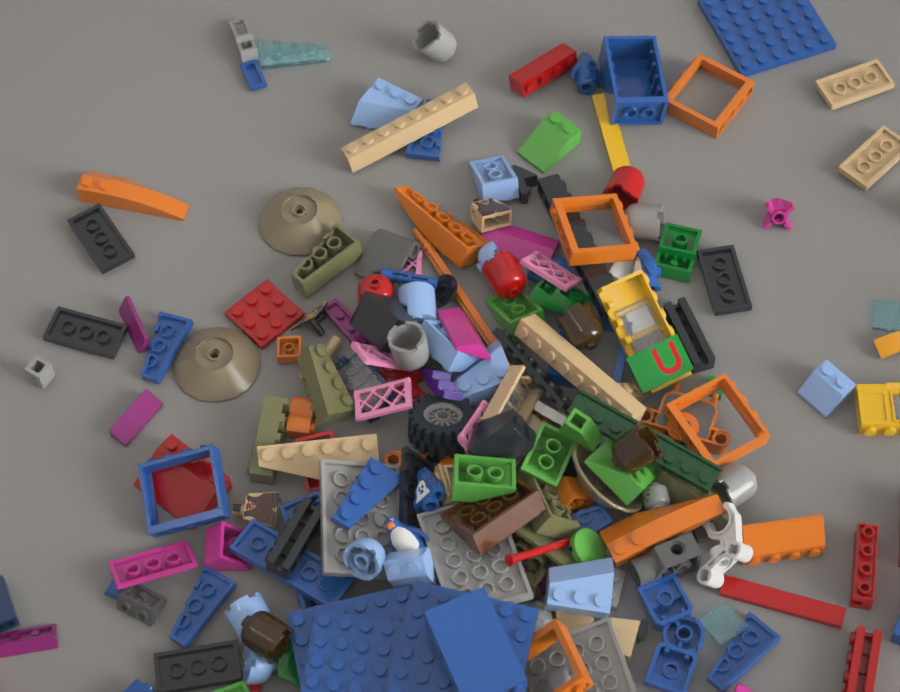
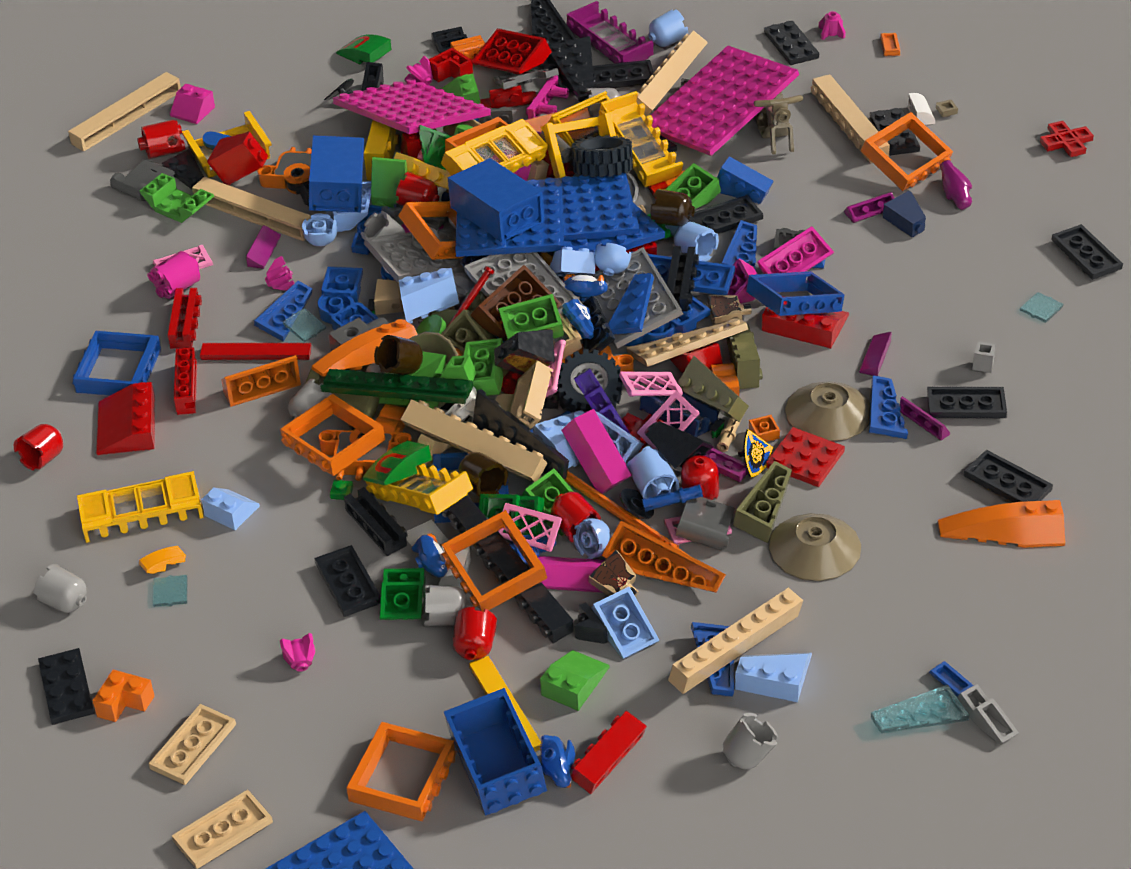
camera: 165 degrees right, 15 degrees down
(408, 345) = (641, 411): light grey cylinder -> none
(727, 552) = (307, 348): white piece -> none

